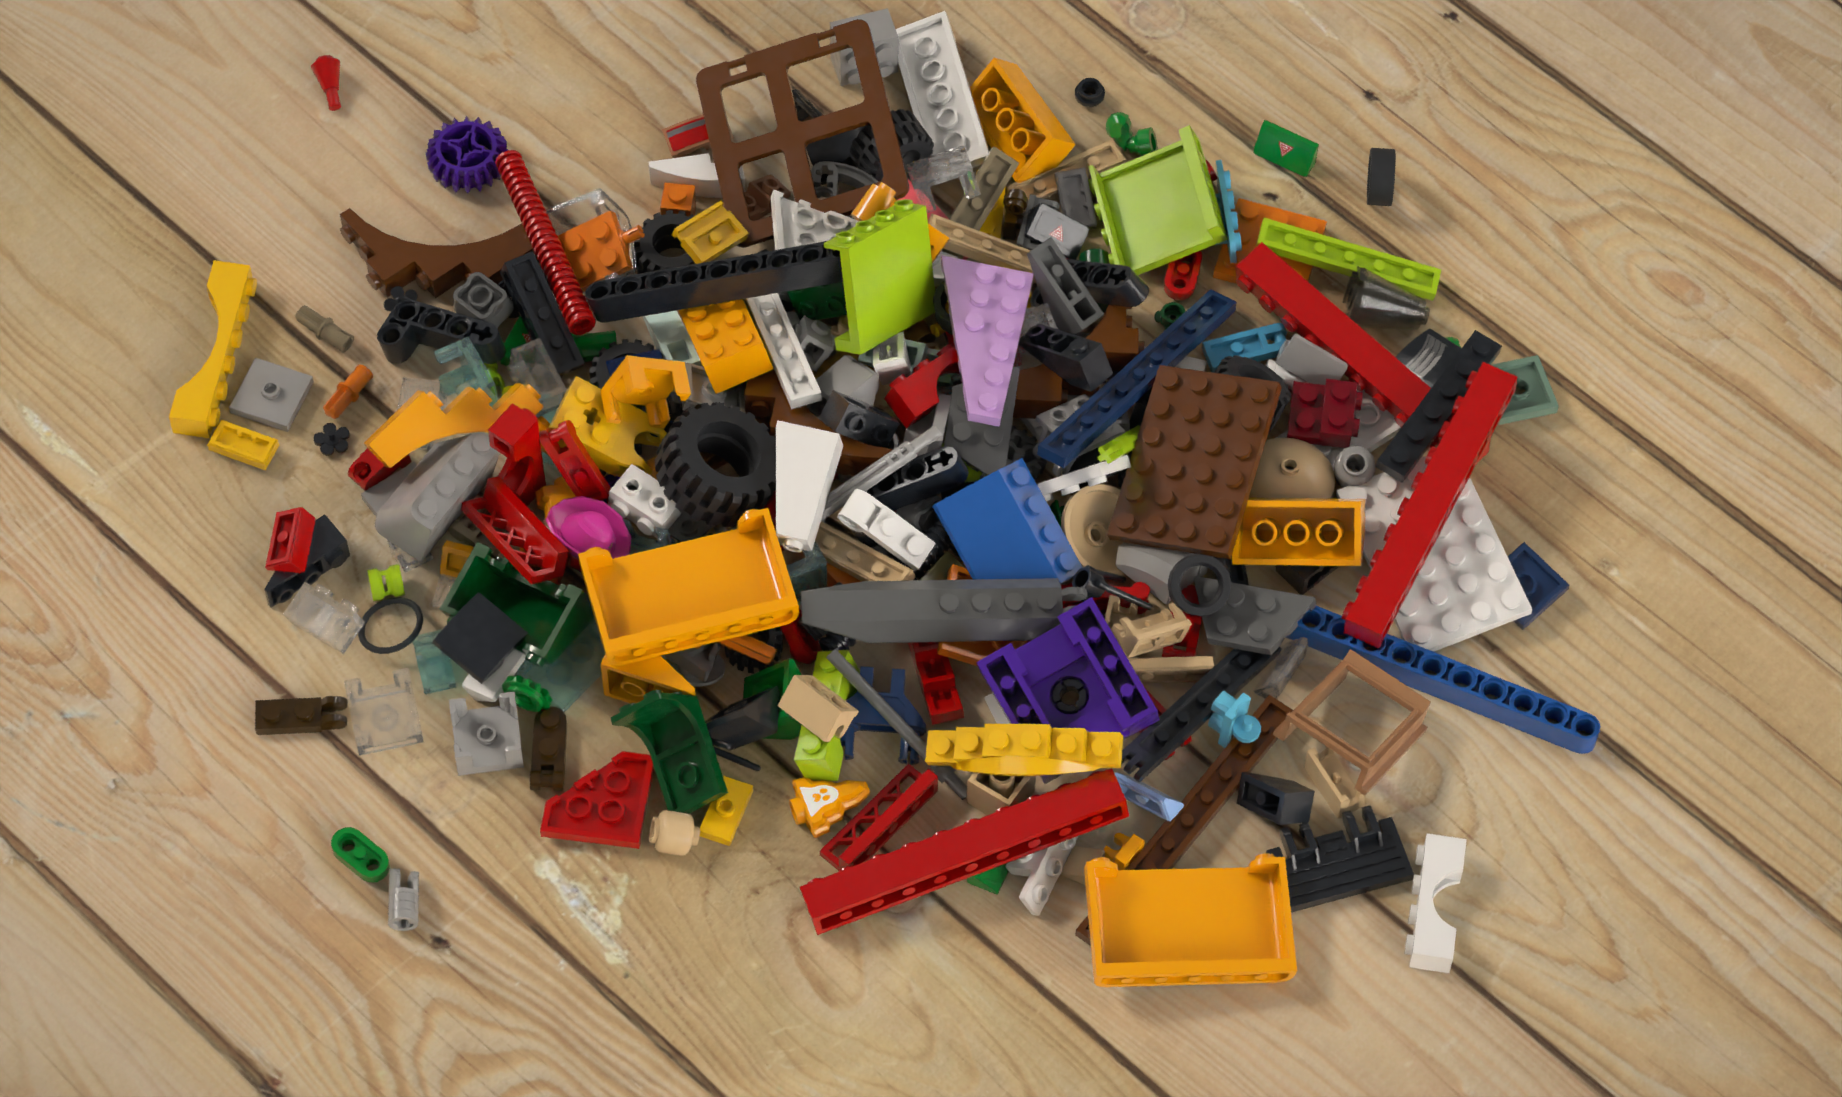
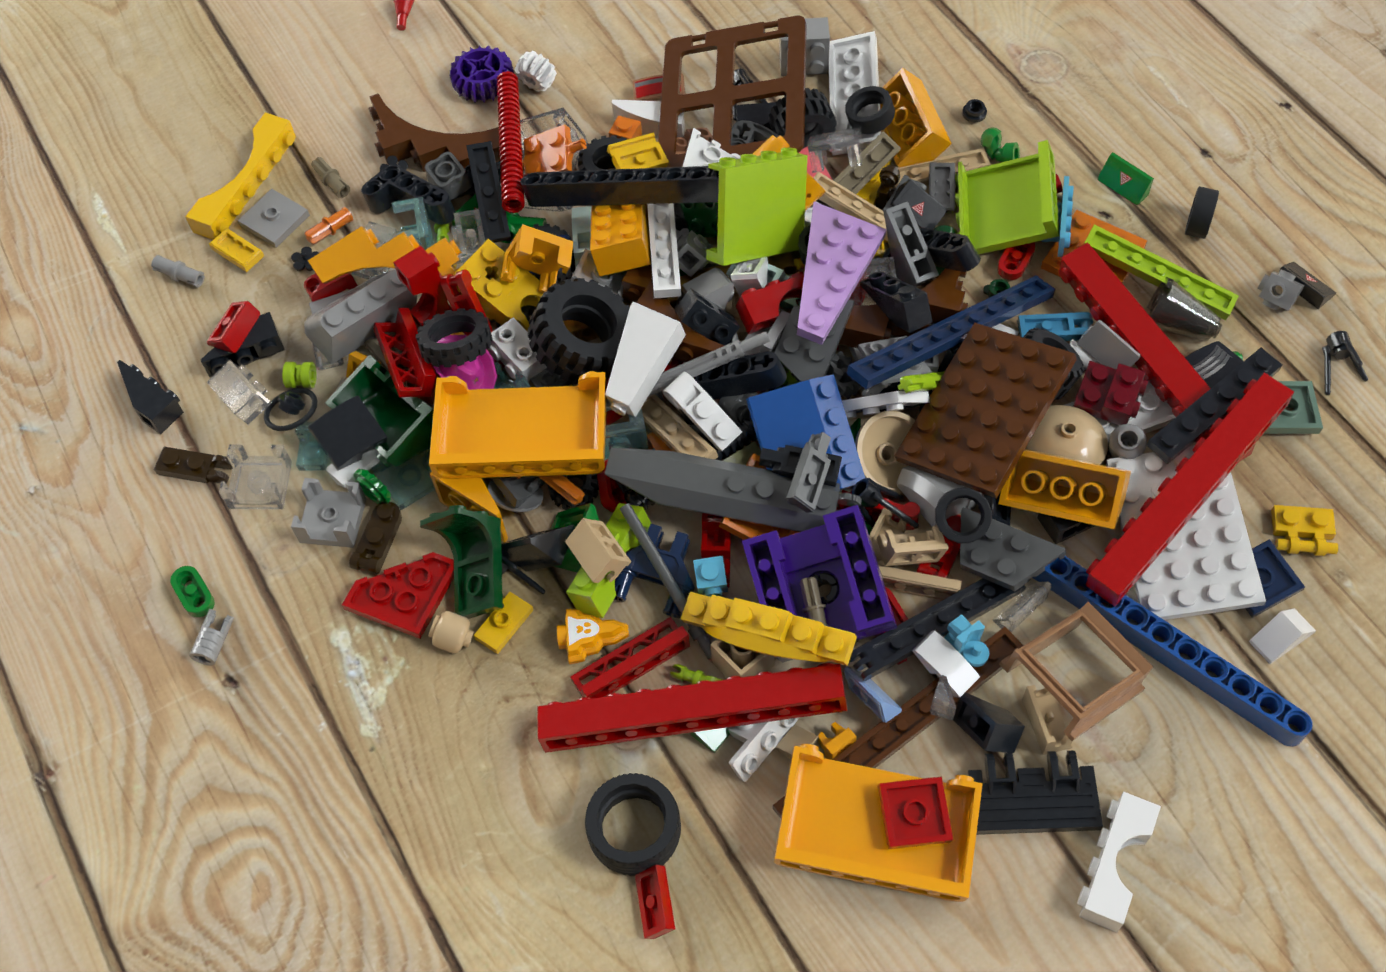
camera: 20 degrees right, 0 degrees up
(180, 486) = (177, 271): none -> light grey pin
(217, 651) = (149, 400): none -> black slope
(390, 618) = (291, 403): none -> black plate
(538, 140) = (535, 71): none -> white gear
(568, 483) = (459, 351): none -> black tyre
(937, 1019) = (624, 788): none -> black tyre
(945, 708) = (710, 576): none -> medium azure brick
(948, 821) = (691, 676): none -> lime piece
(958, 104) = (863, 98): none -> black tyre
(982, 1051) = (655, 902): none -> red plate
(1014, 565) = (786, 459): none -> black hinge
(1028, 573) = (810, 473): none -> dark grey hinge
(1065, 711) = (813, 606): none -> dark tan axle
(1217, 743) = (943, 659): none -> white slope
(1223, 902) = (915, 812): none -> red plate
(1225, 785) = (943, 702): none -> clear slope
(1495, 250) = (1290, 288): none -> light grey brick
(1512, 240) = (1314, 290): none -> black slope
(1555, 640) = (1281, 635): none -> white slope
(1556, 516) = (1304, 523): none -> yellow plate
(1563, 309) = (1340, 347): none -> black plant

